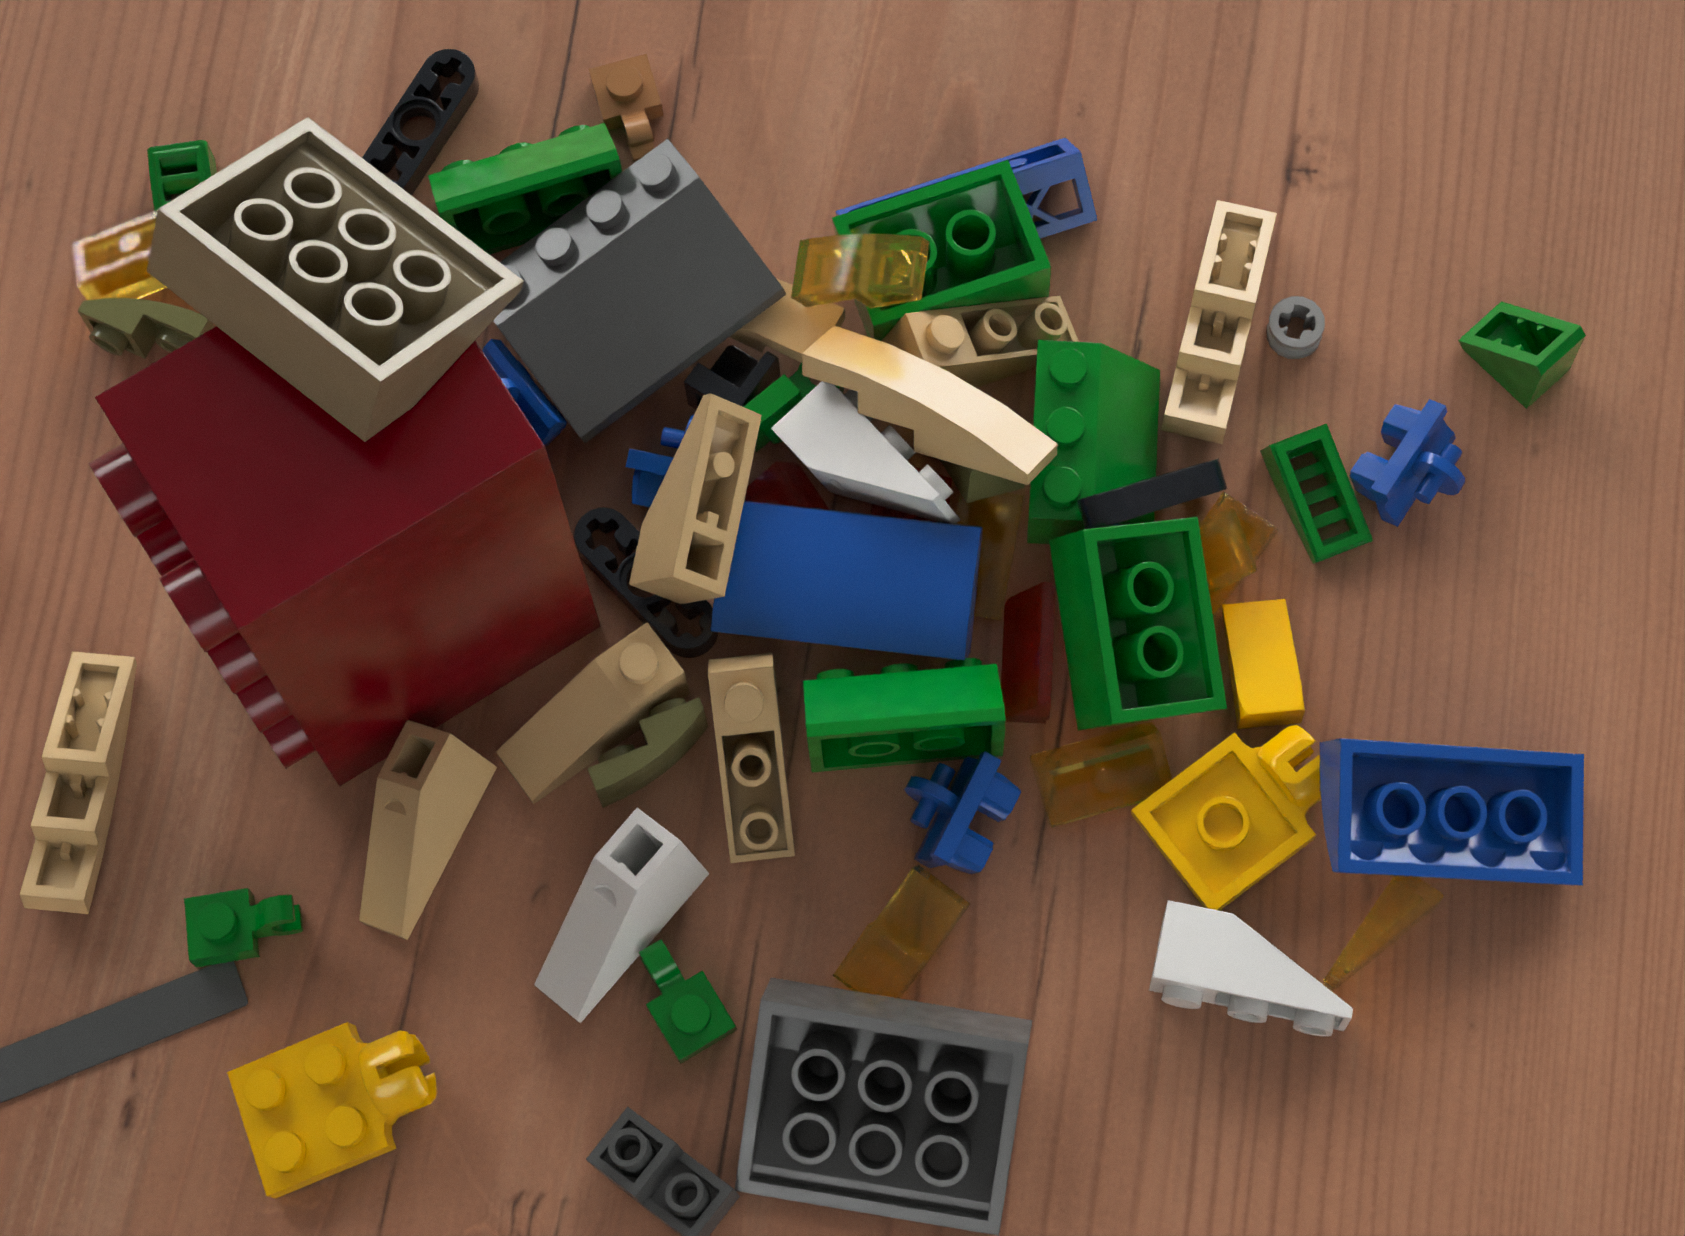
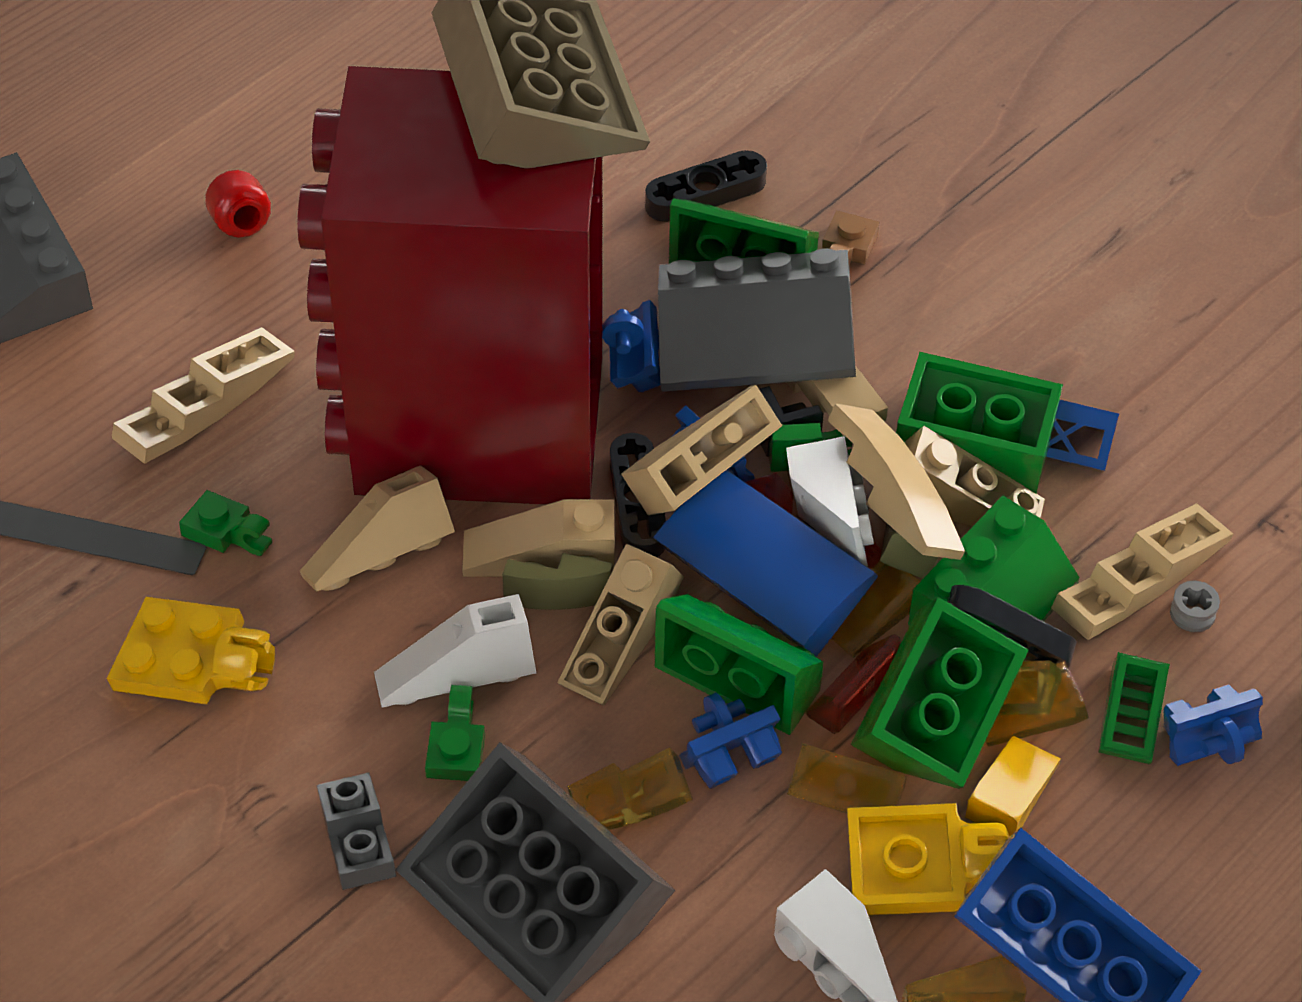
camera: 30 degrees right, 20 degrees down
(861, 267) = (915, 381): clear yellow slope -> none

